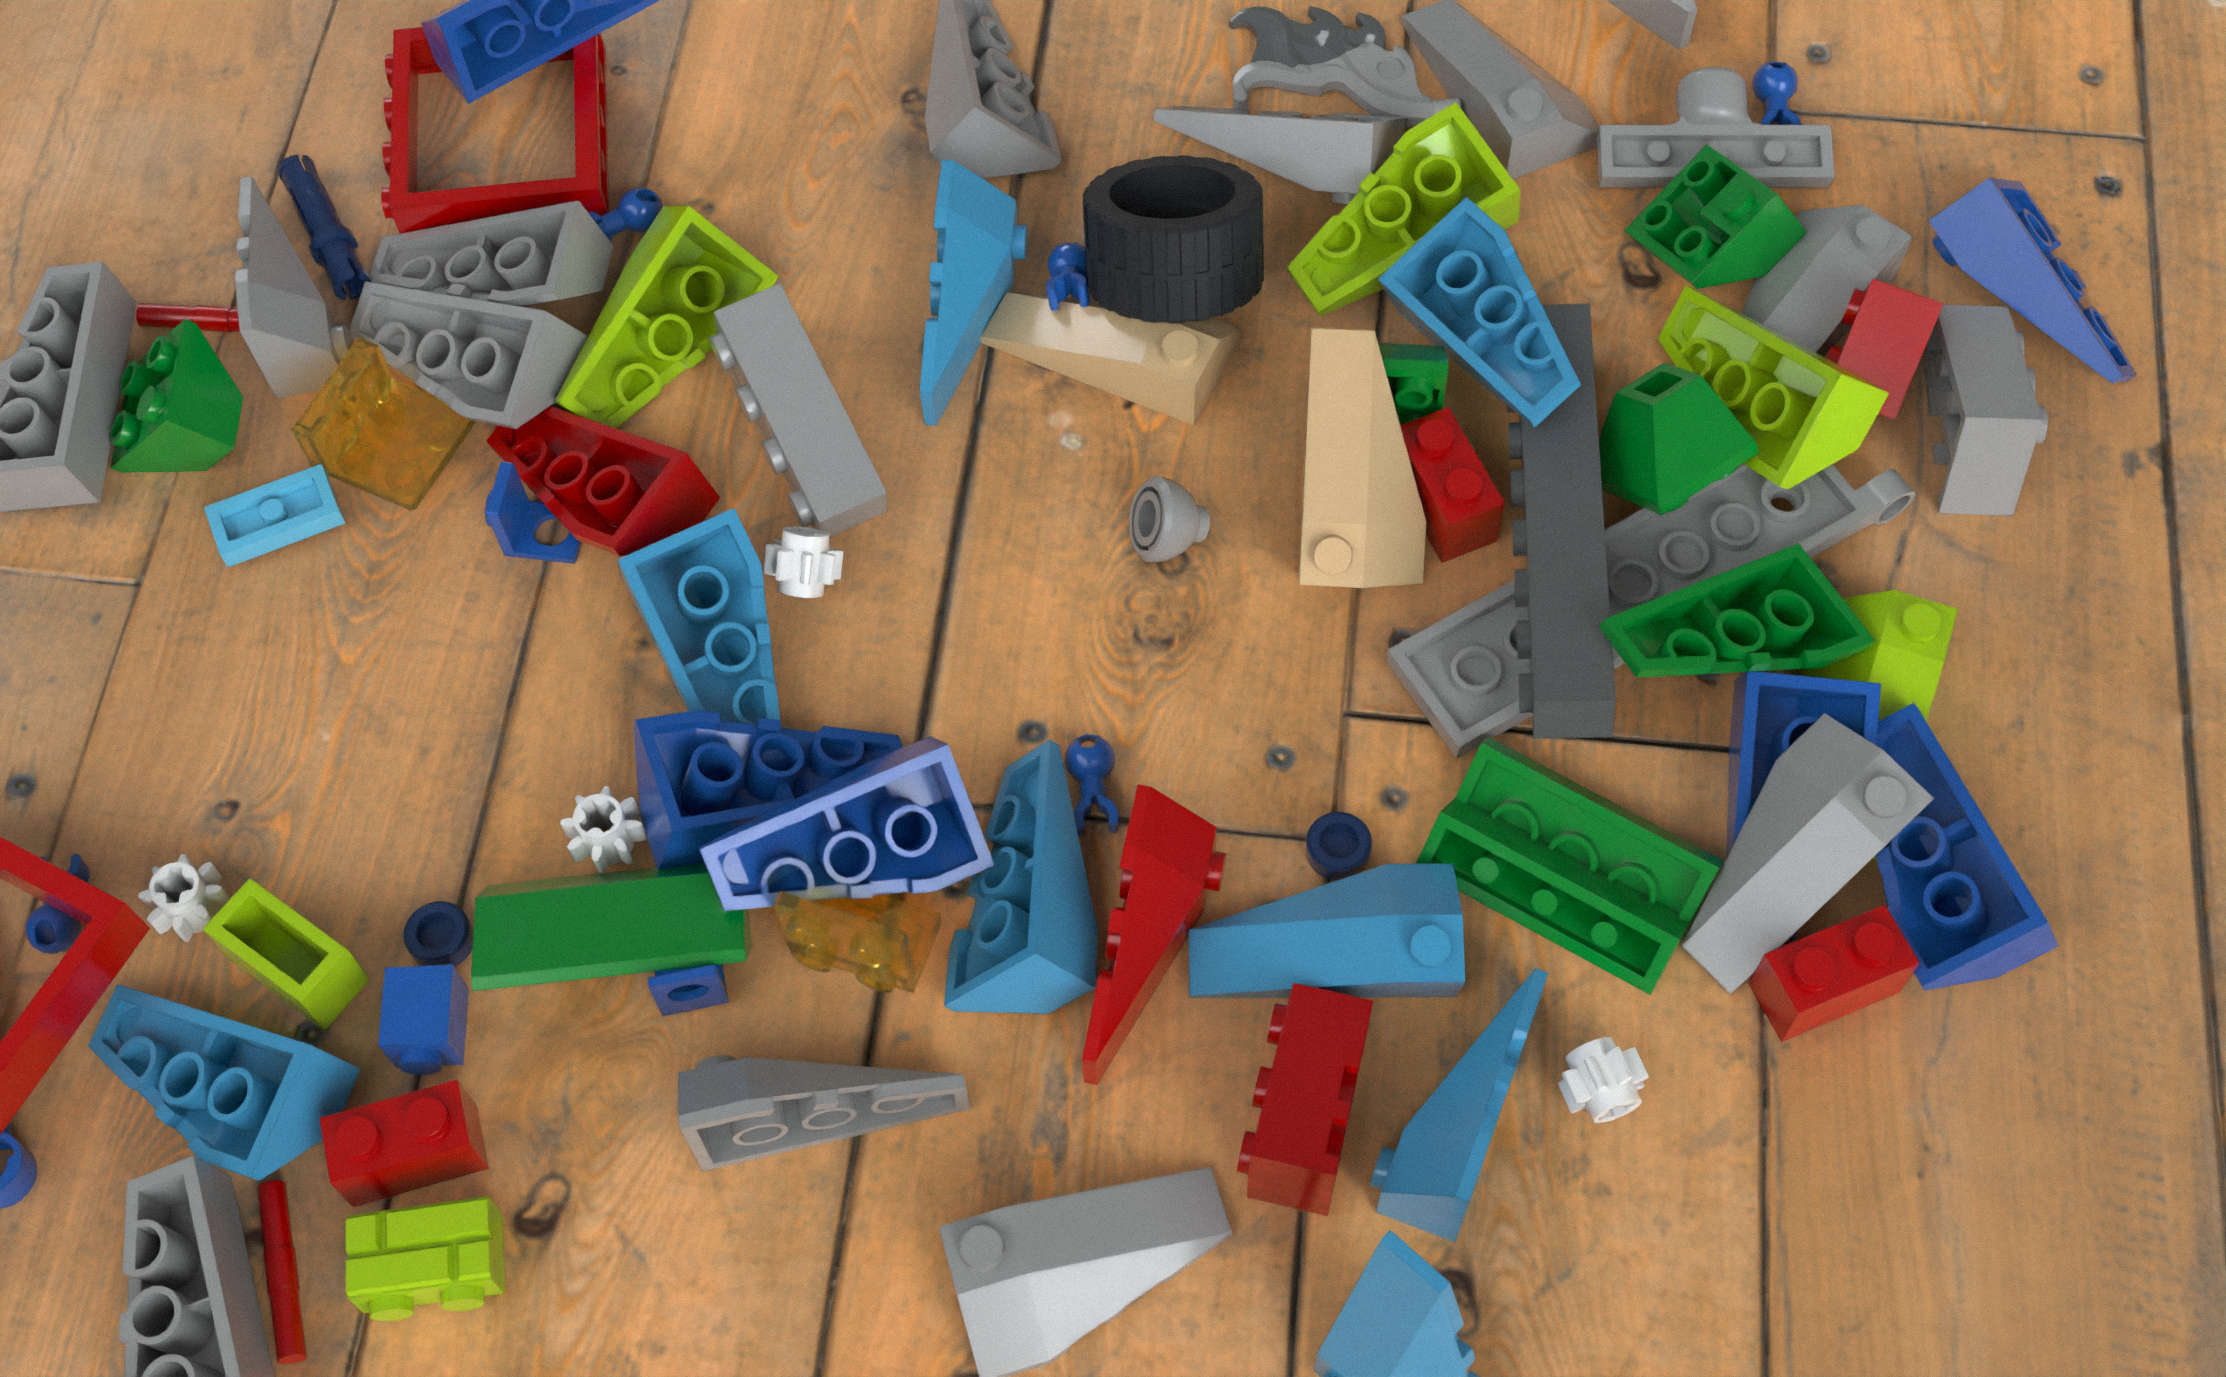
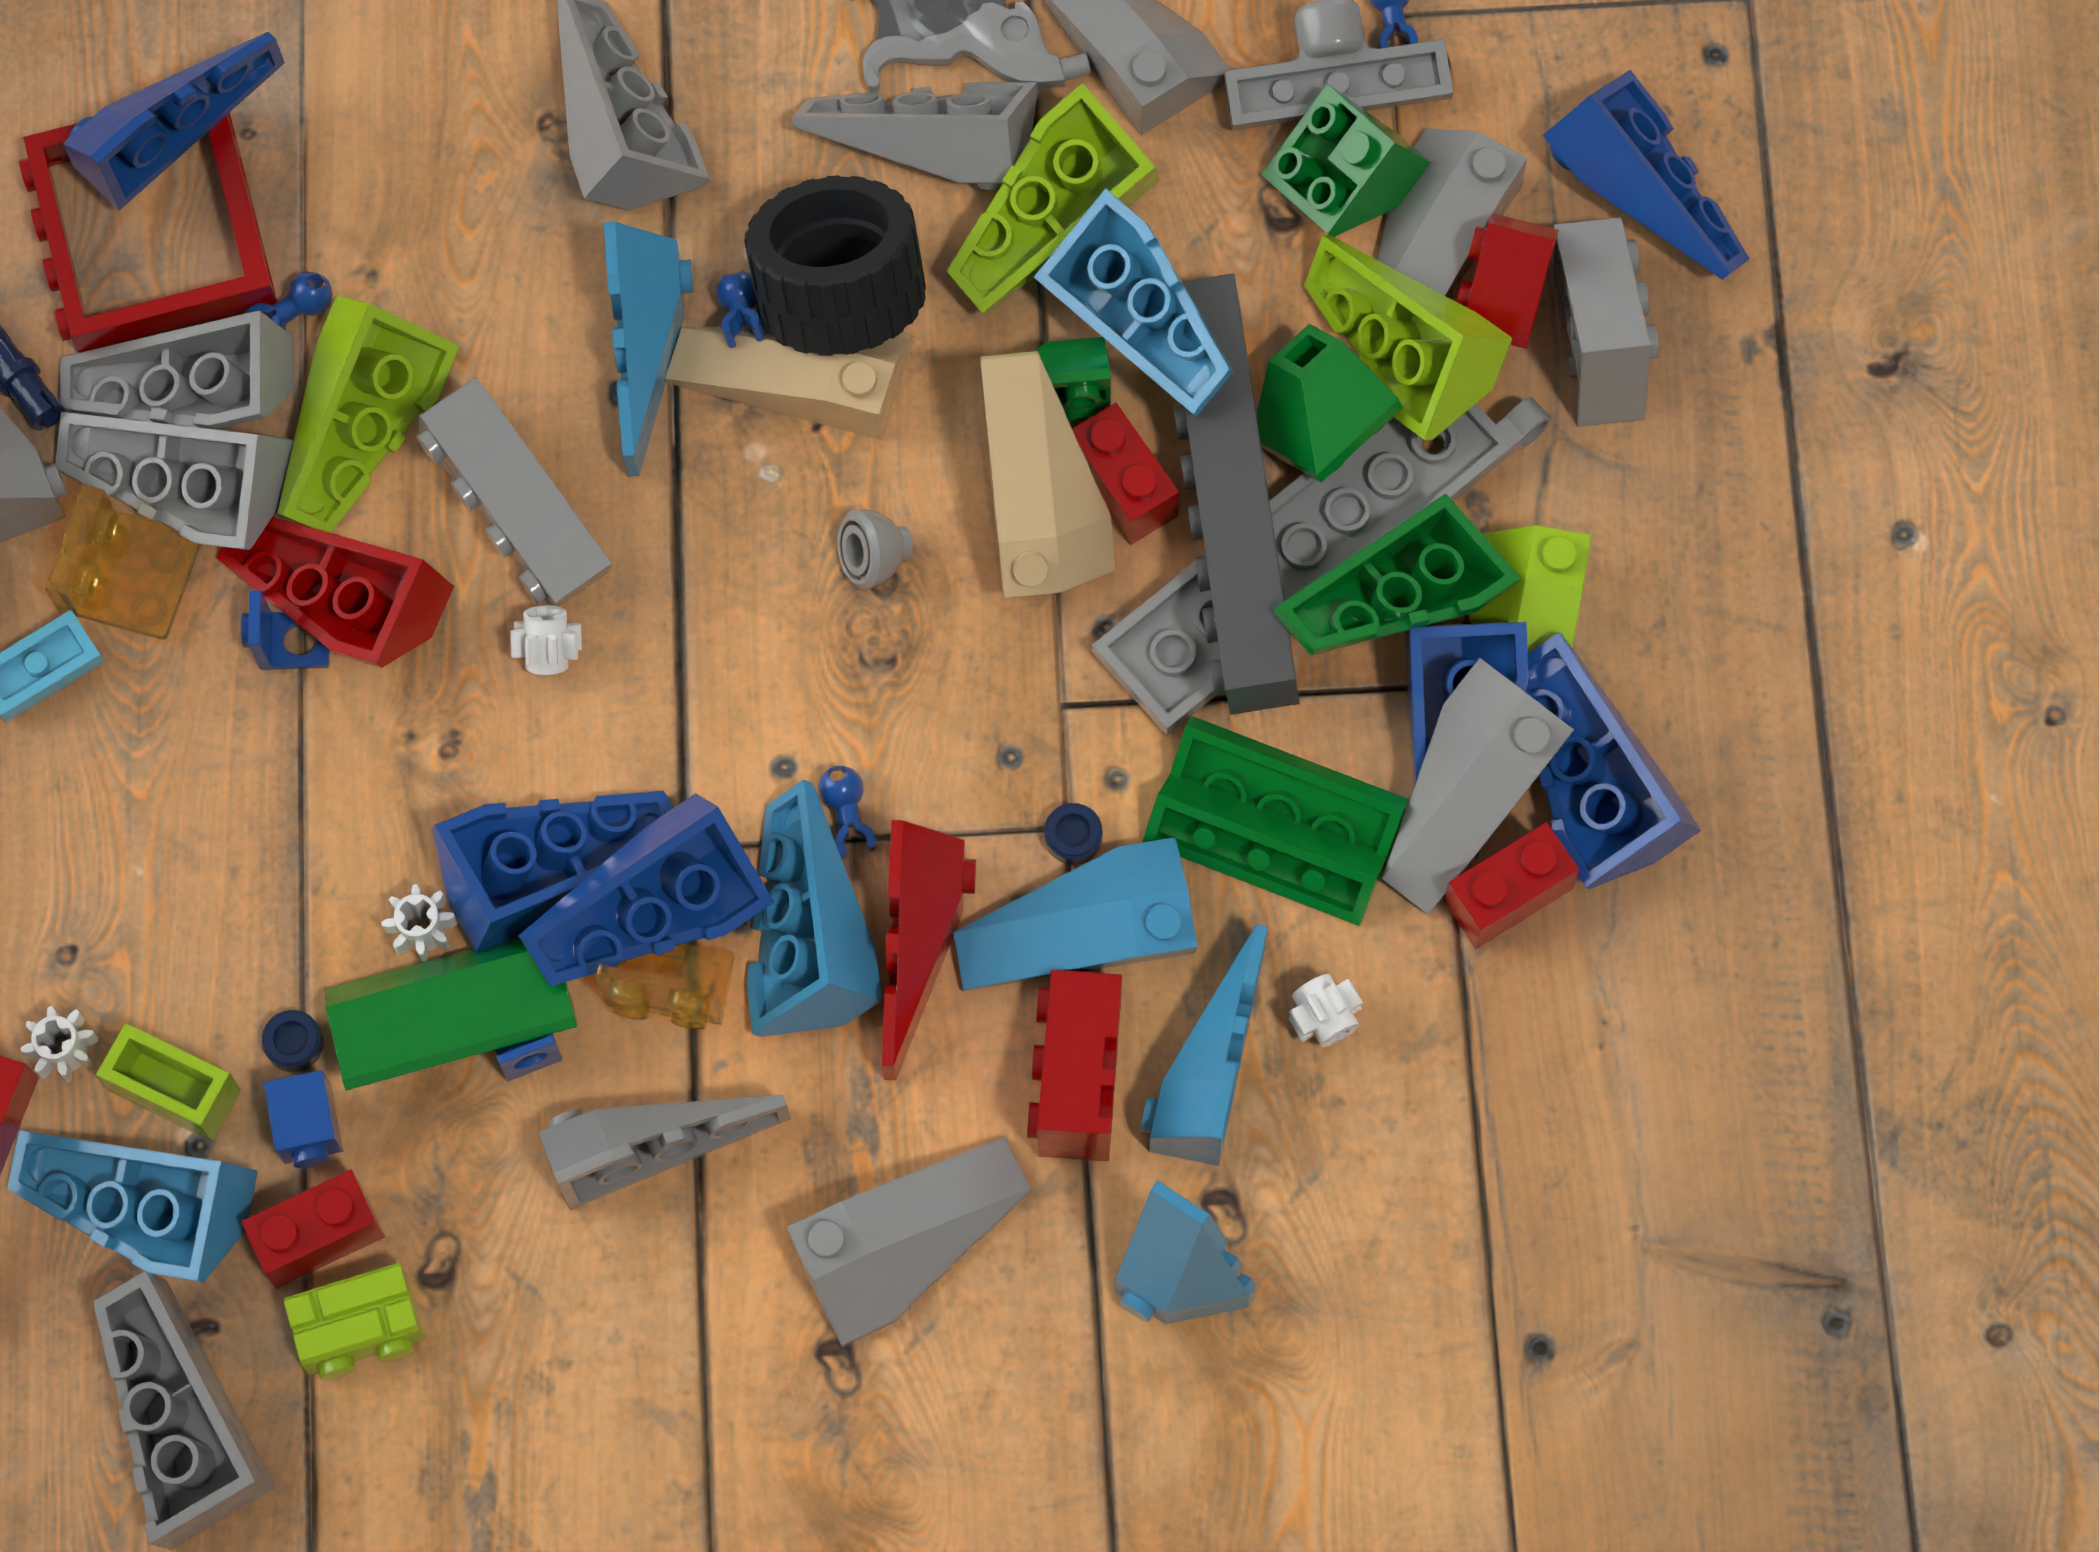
camera: 10 degrees left, 10 degrees up
(281, 1272) = (231, 1352): red piece -> none
(708, 617) = (473, 713): dark azure wedge -> none

